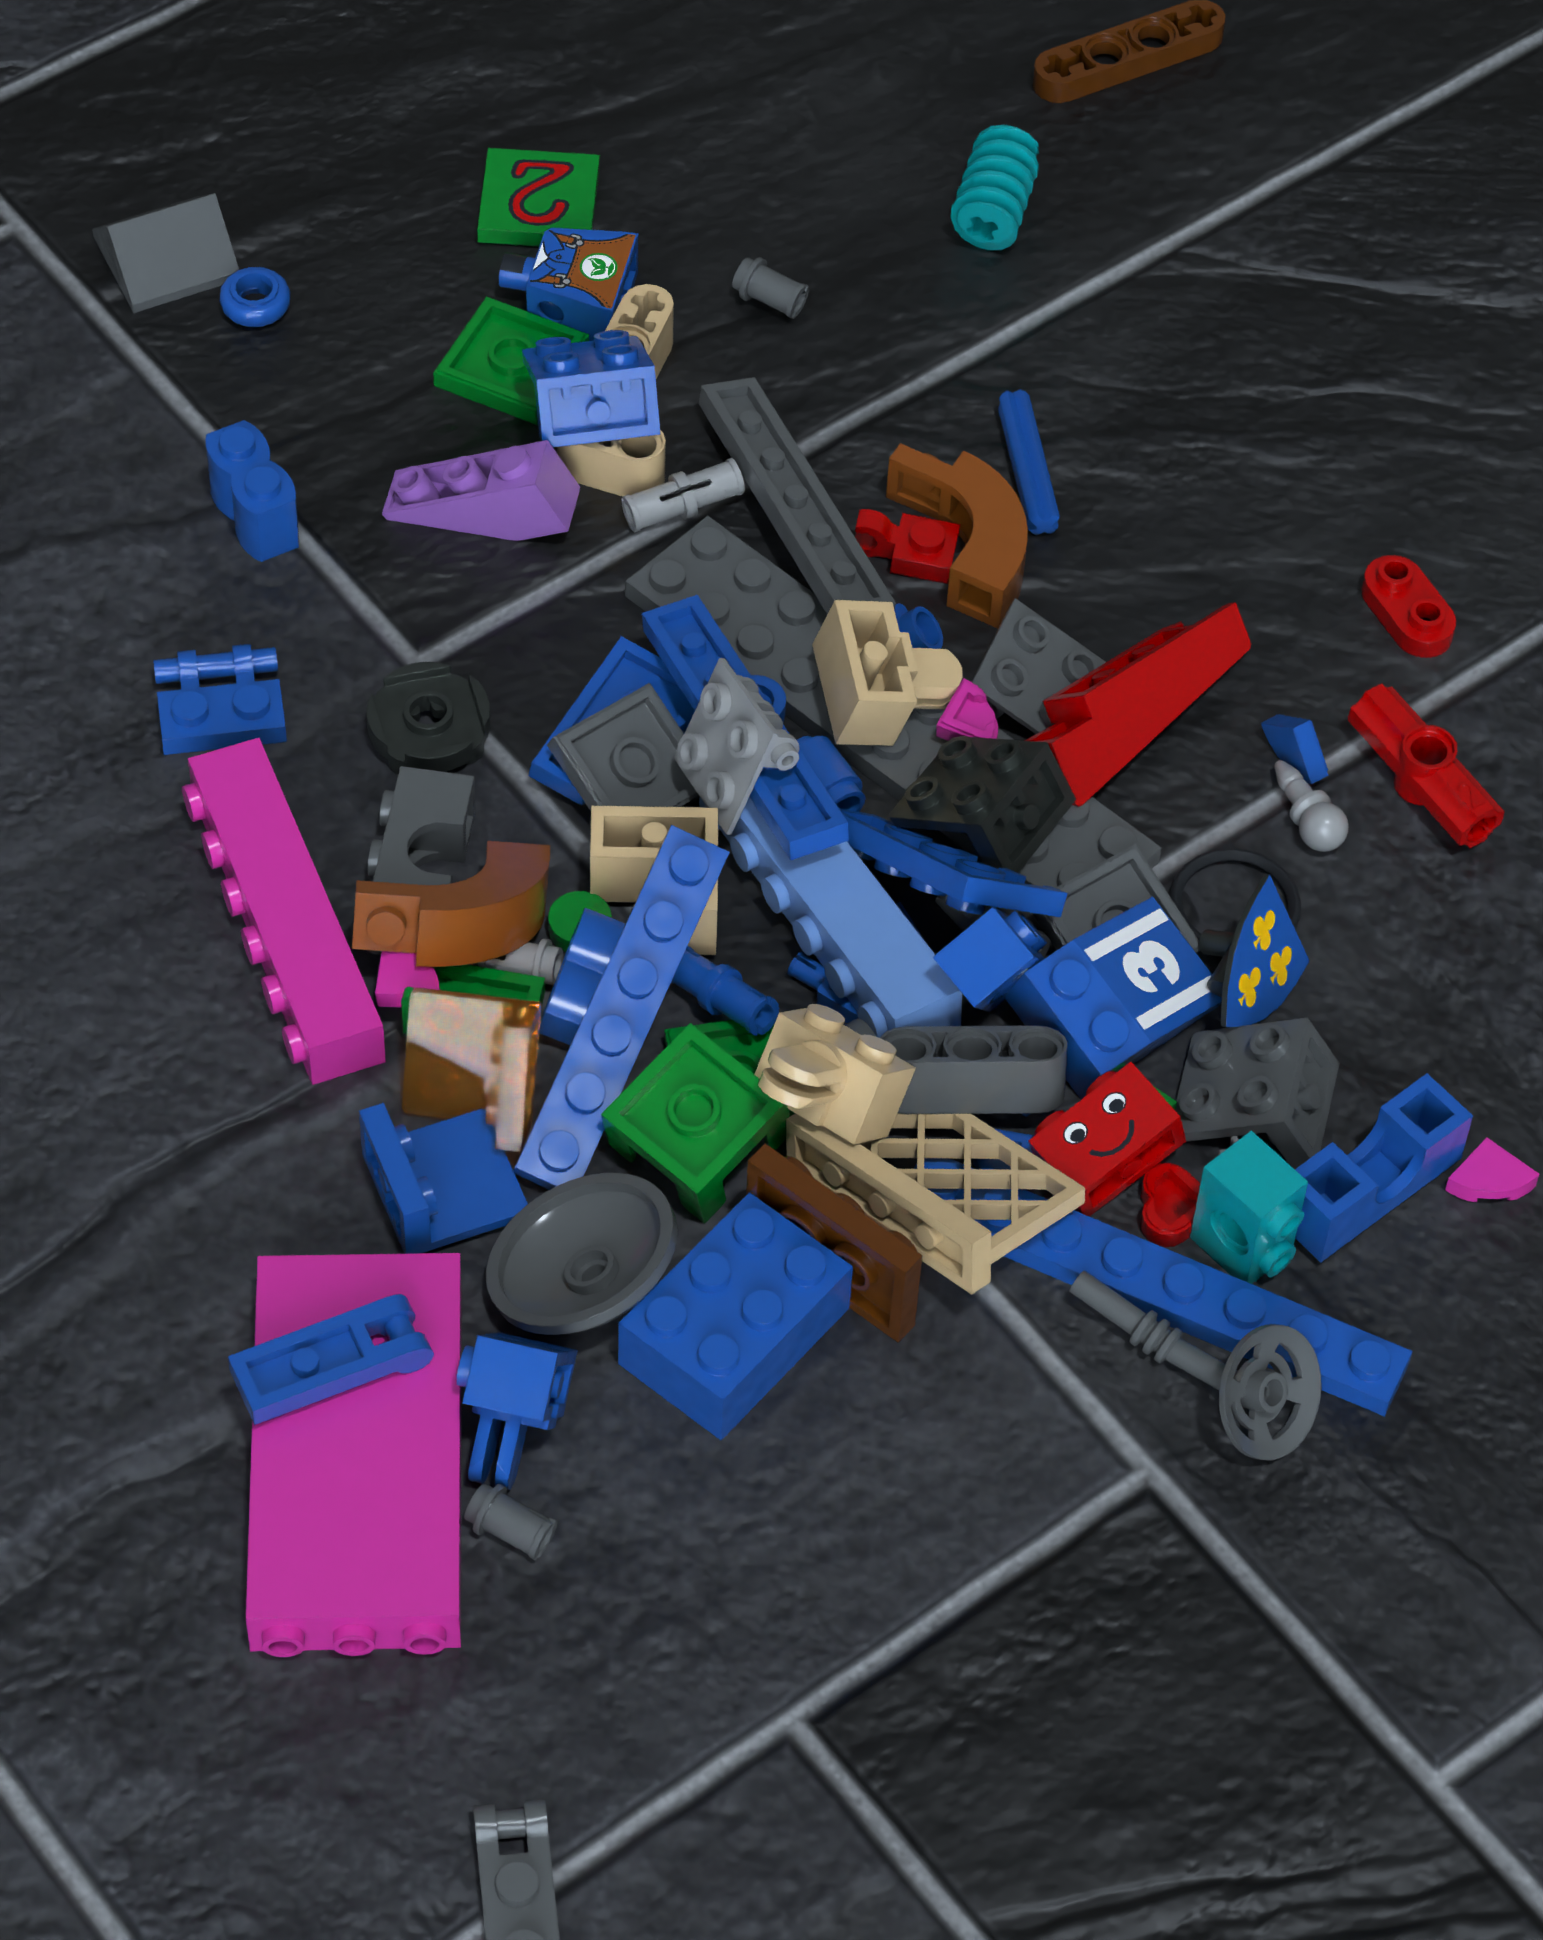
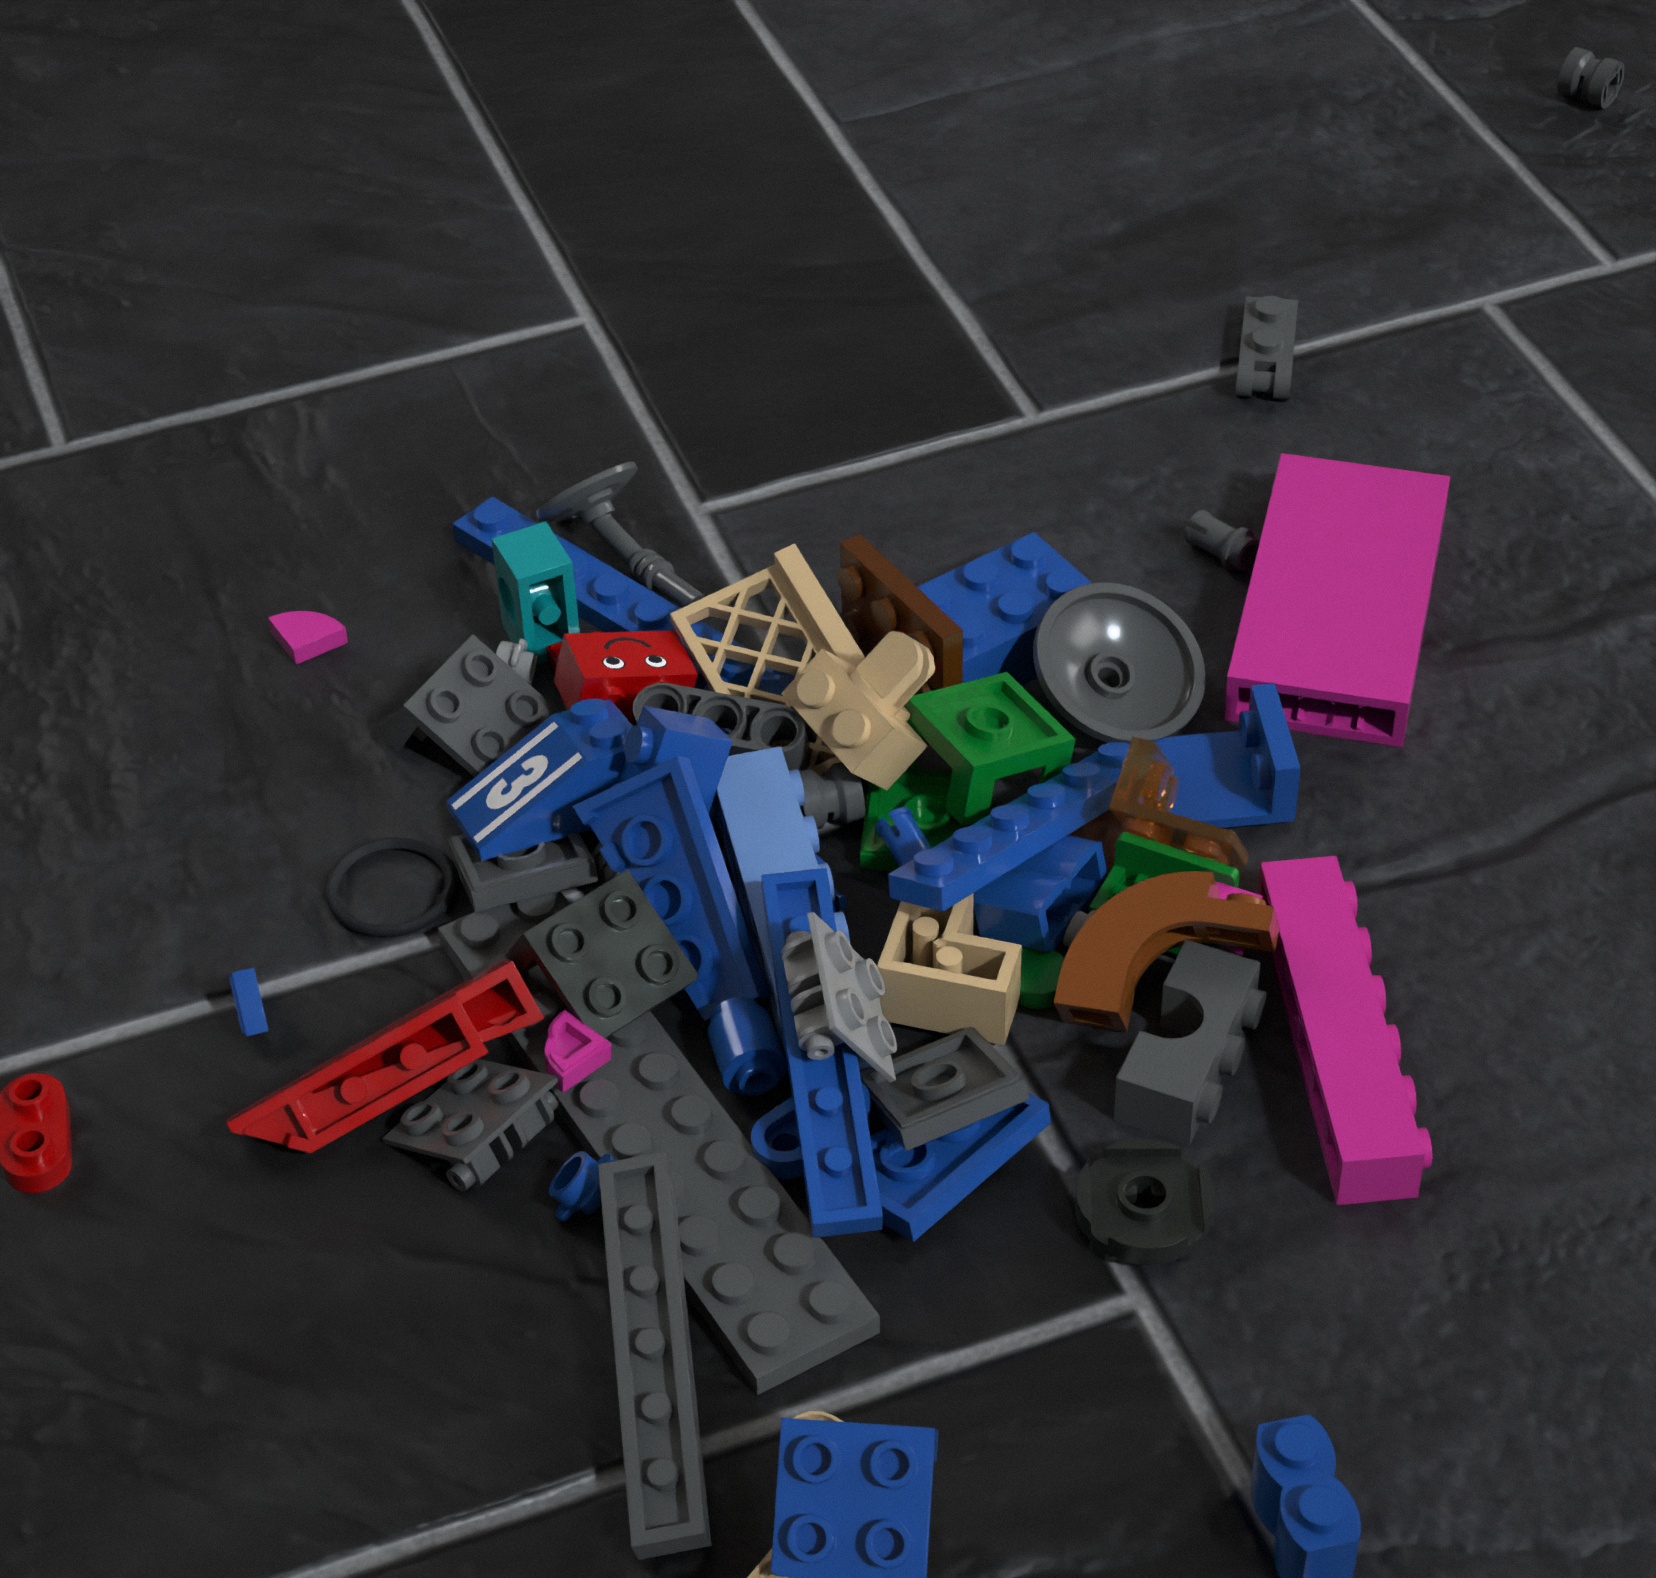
camera: 160 degrees left, 10 degrees down
(220, 714) = (1376, 1265): blue plate -> none
(329, 1358) = (1357, 597): blue plate -> none
(493, 493) = (1021, 1456): medium lavender slope -> none
(512, 1383) = (1203, 573): blue brick -> none
(683, 495) = (761, 1413): light grey pin -> none
(875, 674) = (657, 1076): tan brick -> none
(917, 546) = (528, 1302): red plate -> none
(991, 519) = (445, 1259): dark orange arch -> none
(1028, 462) = (348, 1385): blue axle -> none
(1258, 960) = (412, 789): blue shield -> none
(1319, 821) = (270, 927): light grey bar -> none
(1409, 1146) = (369, 642): blue arch -> none
(1425, 765) = (137, 946): red piece -> none

